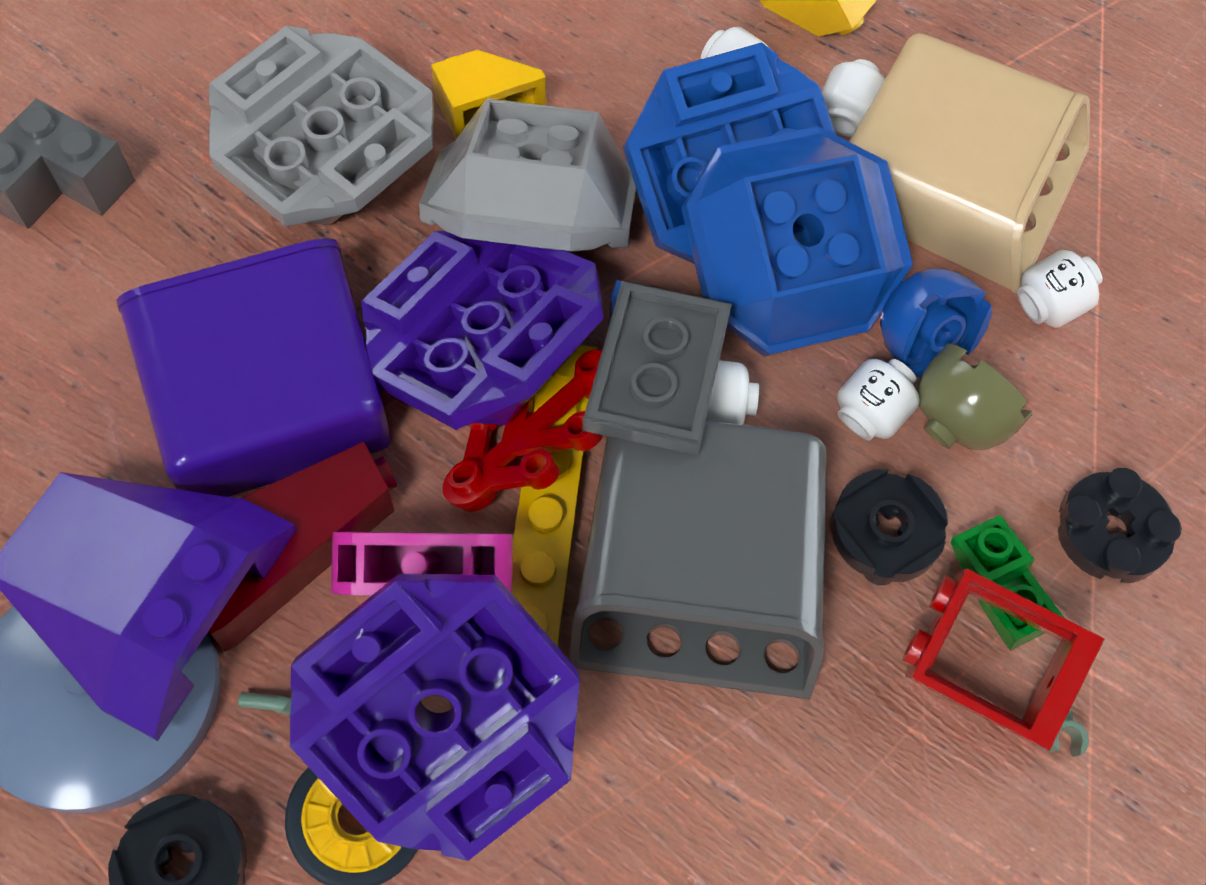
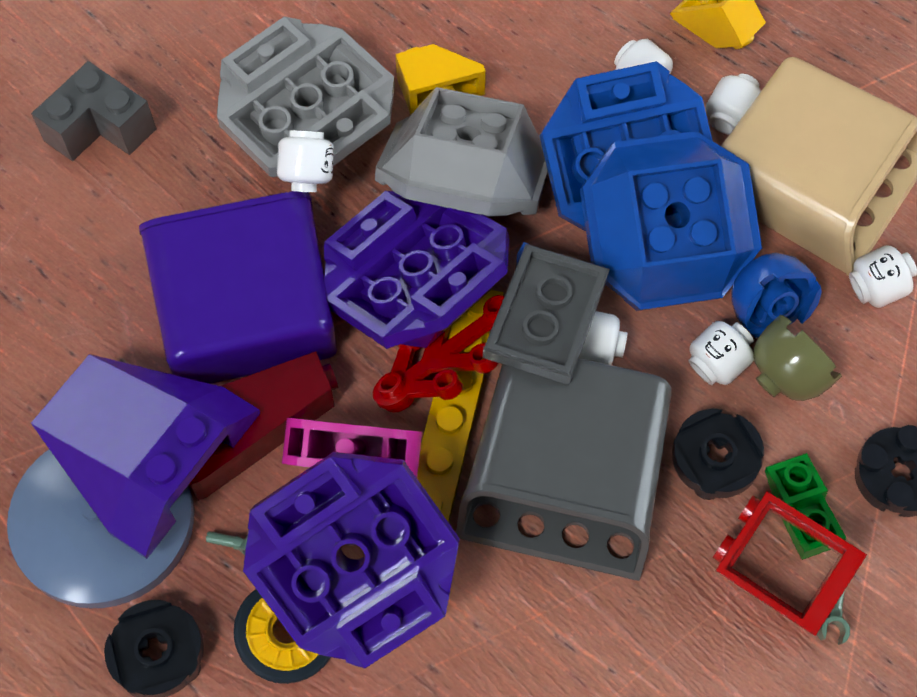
camera: 10 degrees right, 0 degrees up
(327, 198) = (305, 160): none -> white head

